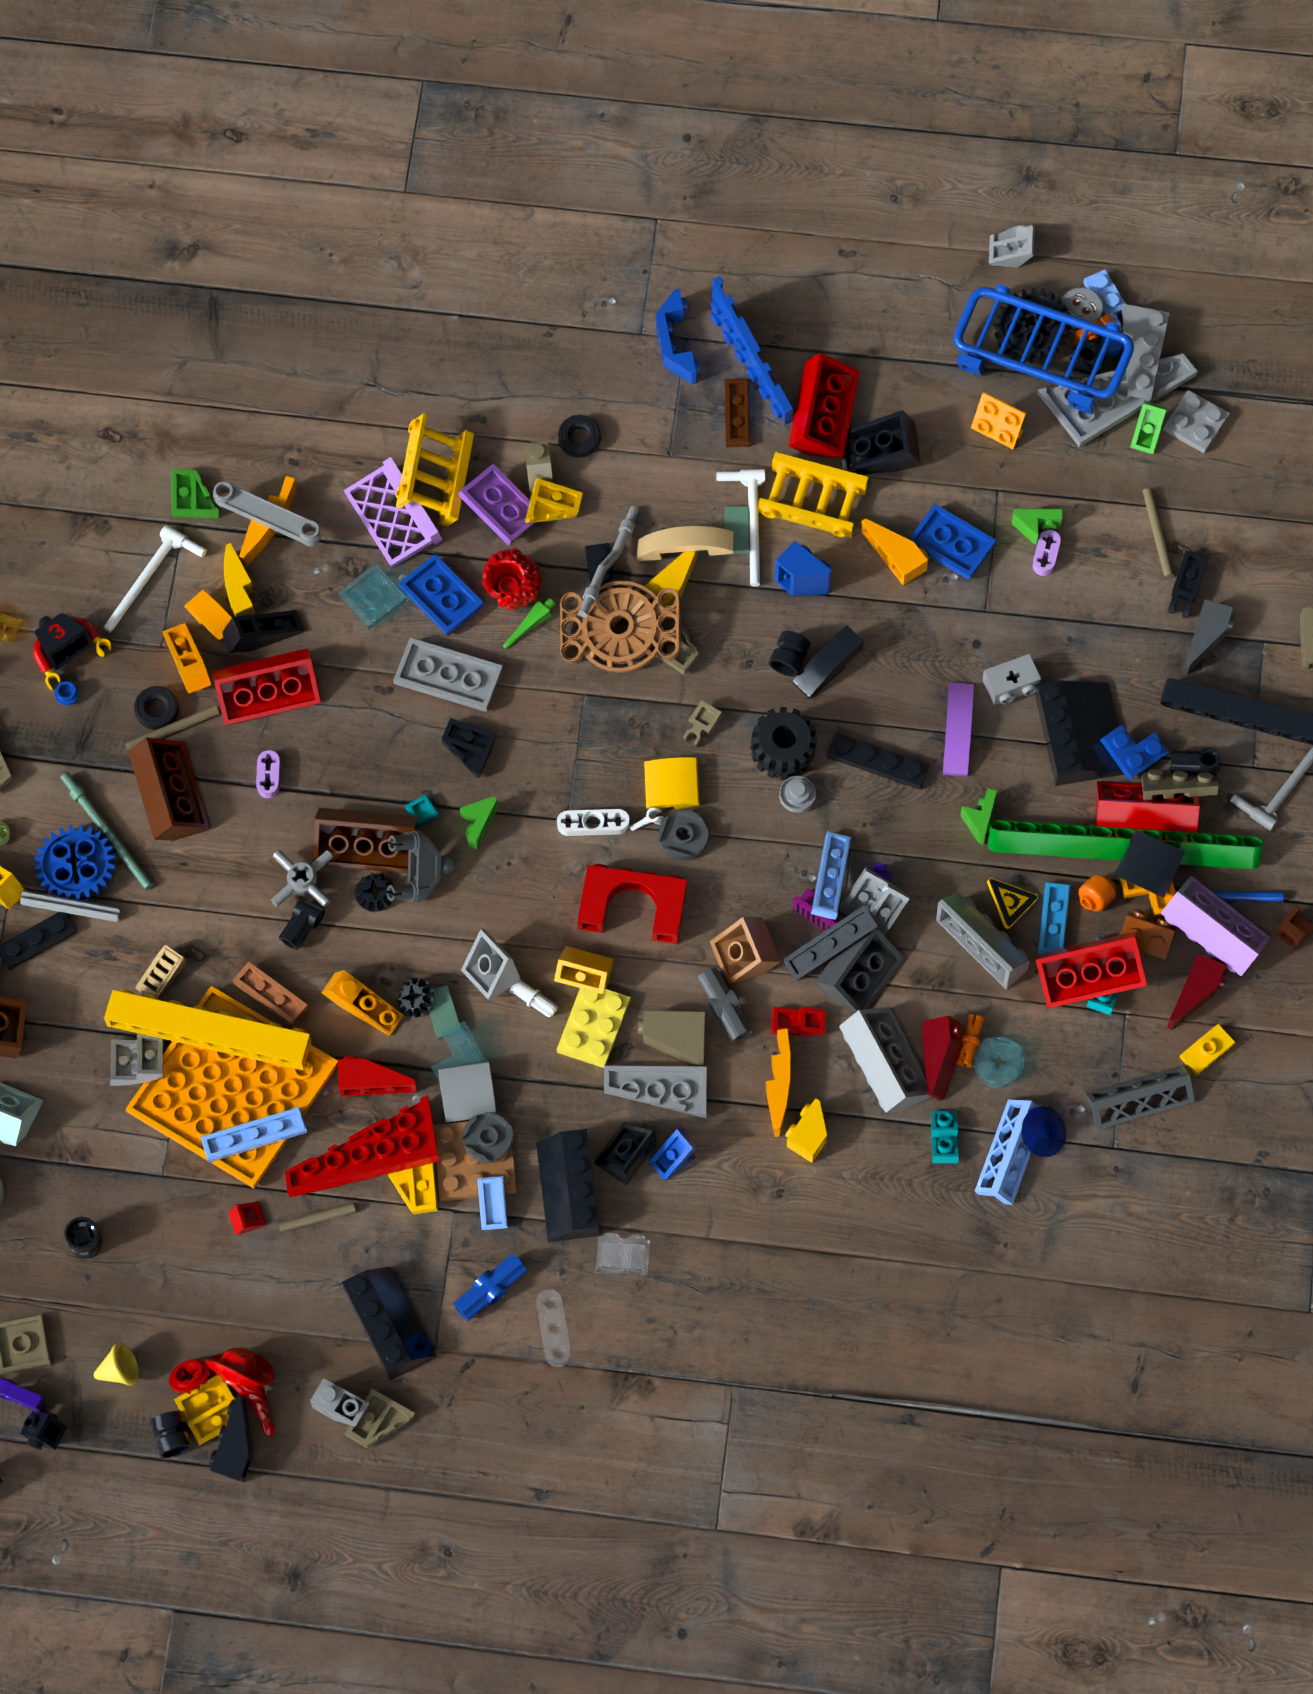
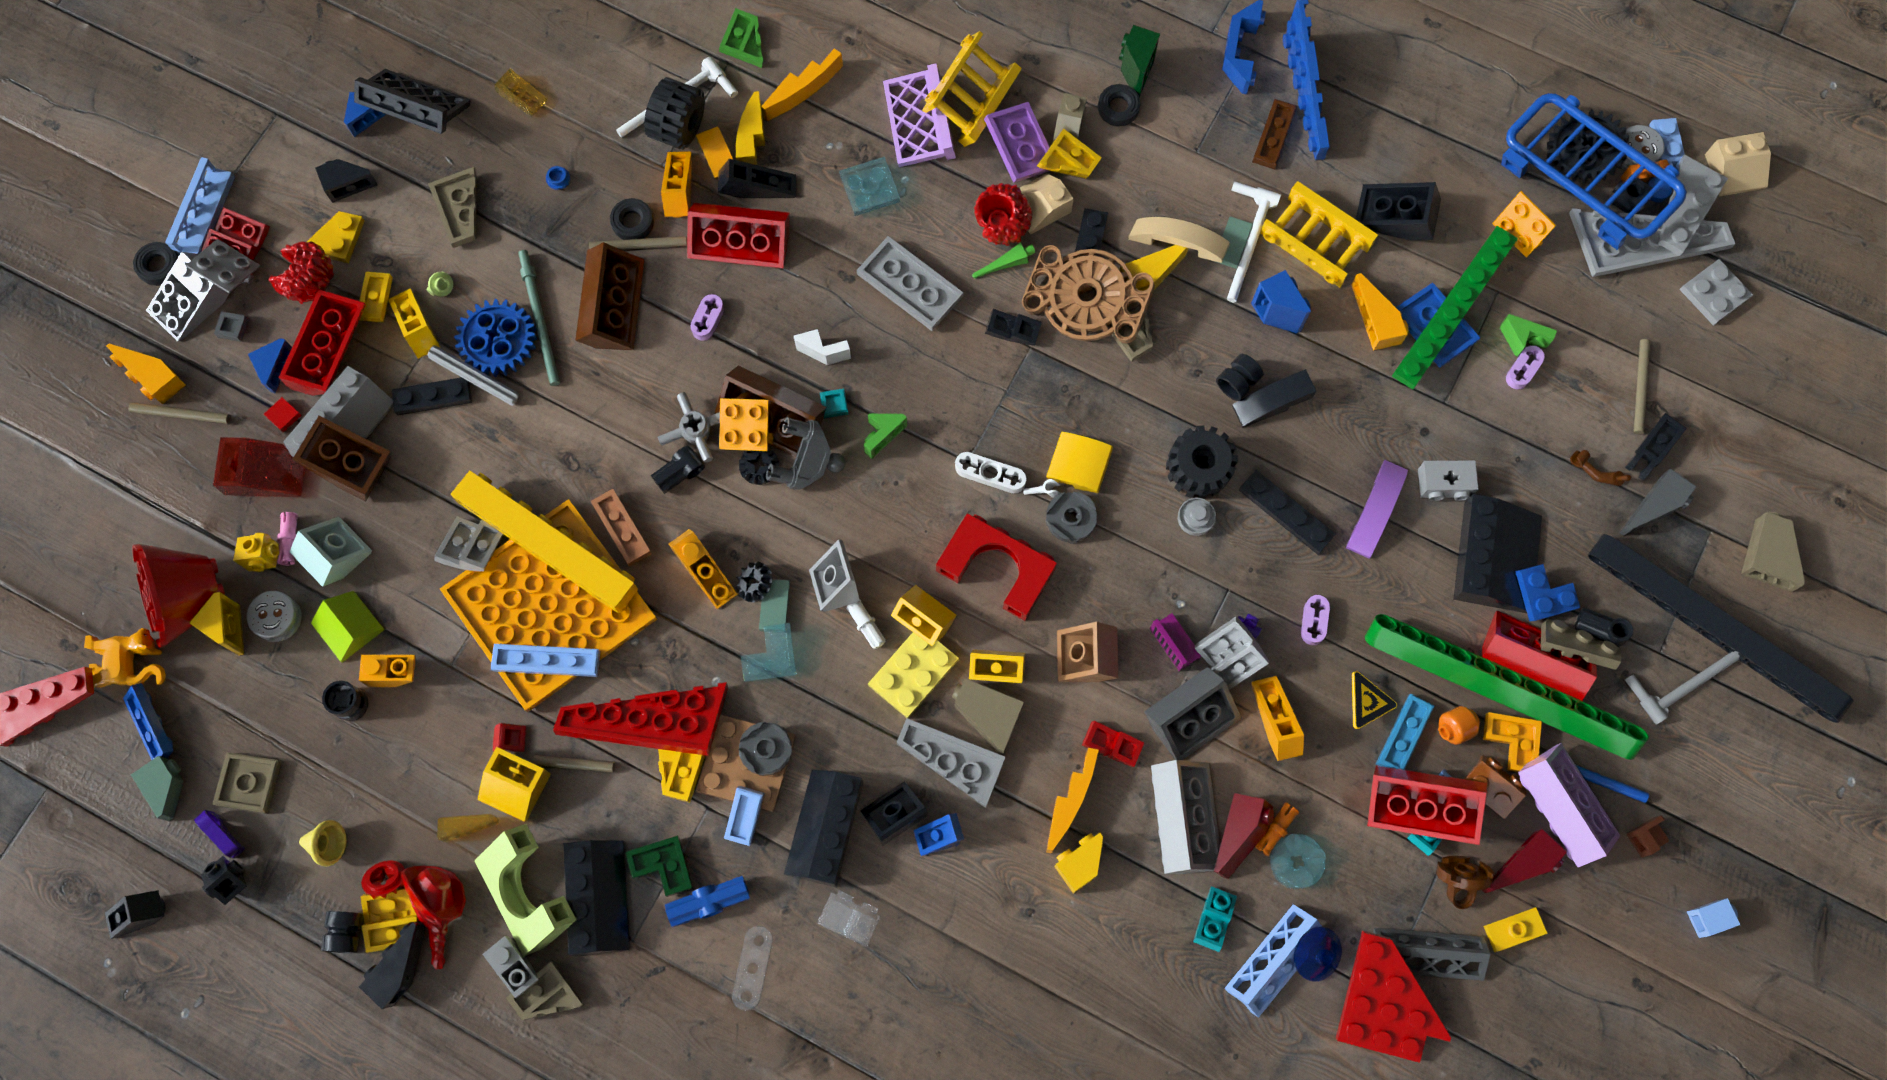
camera: 20 degrees right, 5 degrees up
(49, 1174) = (346, 624): none -> lime slope
(63, 640) = (572, 128): black torso -> none
(112, 1196) = (387, 670): none -> light orange slope
(159, 592) = (674, 113): none -> black wheel
(174, 970) = (524, 463): tan slope -> none
(239, 1305) = (455, 827): none -> clear yellow slope
(267, 513) = (802, 76): light grey piece -> none
(270, 1252) = (512, 784): none -> yellow slope
(293, 1328) = (501, 871): none -> yellowish green arch
(348, 859) = (744, 424): none -> light orange hinge
(365, 1078) = (672, 642): red slope -> none
(381, 765) = (811, 345): none -> white slope
(437, 1265) = (662, 857): none -> dark green plate
(441, 595) = (933, 207): blue plate -> none
(466, 1091) = (764, 693): light grey slope -> none
(469, 744) = (903, 356): black wing -> none
(548, 549) = (1048, 201): none -> tan slope
(561, 683) = (1012, 328): none -> black slope
(580, 384) = (1138, 56): none -> dark green slope
(591, 593) = (1071, 253): light grey bar -> none
(668, 989) = (997, 666): none -> yellow brick
(703, 720) = (1133, 411): dark tan plate -> none
(724, 1004) = (1047, 700): dark grey piece -> none
(824, 407) = (1359, 155): red slope -> none
(830, 942) = (1174, 679): black plate -> none
(831, 875) = (1199, 610): light blue tile -> none
(933, 849) = (1321, 620): none -> lavender beam
(936, 945) = (1278, 718): none -> light orange slope
(962, 520) = (1454, 307): none -> green plate
(979, 819) = (1365, 606): bright green slope -> none
(982, 939) = (1326, 730): light grey slope -> none
(1012, 246) = (1593, 68): light grey slope -> none
(1117, 1150) = (1386, 1004): none -> red wing
(1124, 619) = (1580, 460): none -> reddish brown piece
(1145, 1019) = (1462, 875): none -> reddish brown tile
(1148, 427) = (1669, 281): slope -> none
(1149, 863) = (1524, 717): black slope -> none
(1178, 293) = (1742, 161): none -> tan slope

